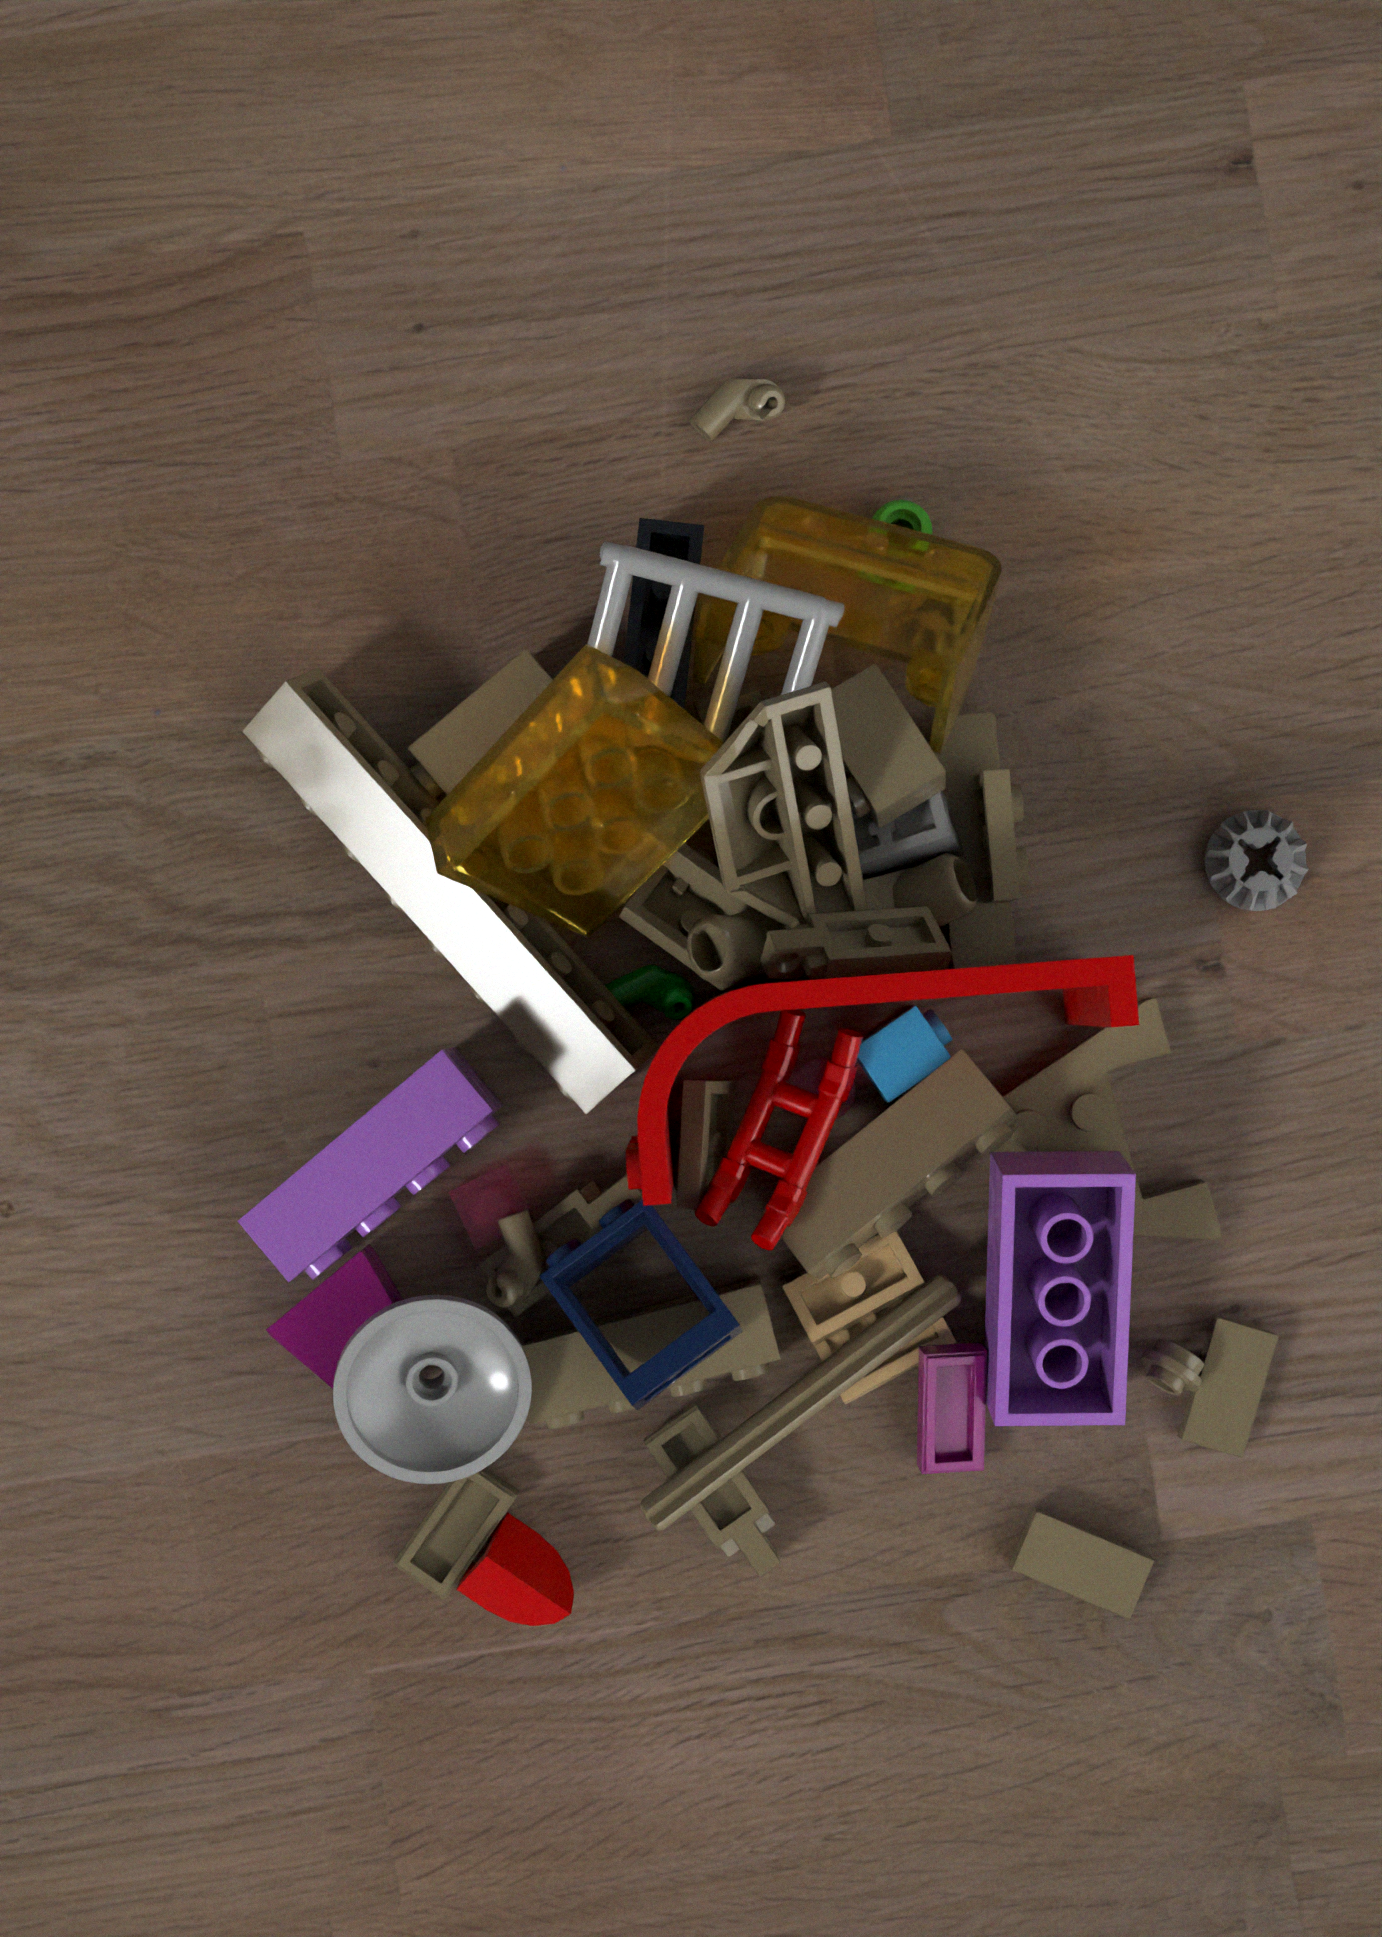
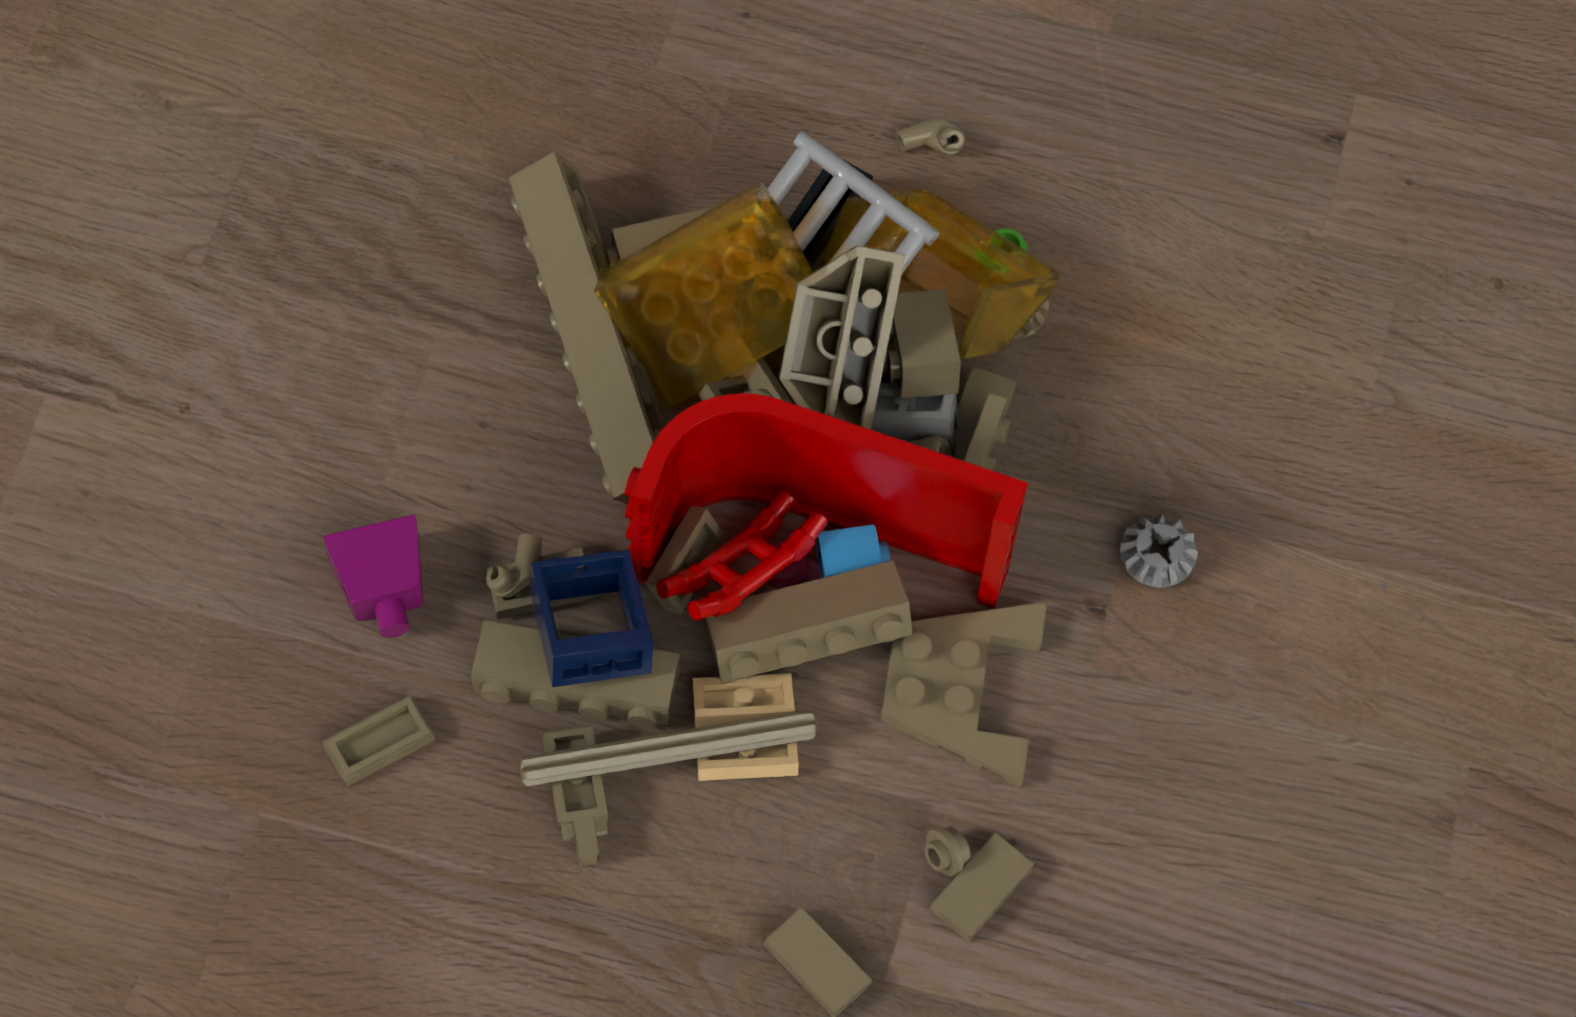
camera: 20 degrees right, 25 degrees down
(372, 1161) = (456, 462): medium lavender brick -> none
(439, 1425) = (409, 576): light grey dish -> none
(486, 1201) = (505, 536): clear pink plate -> none
(520, 1577) = (404, 785): red brick -> none
(951, 1408) = (773, 807): magenta tile -> none
(1058, 1287) = (886, 741): medium lavender brick -> none

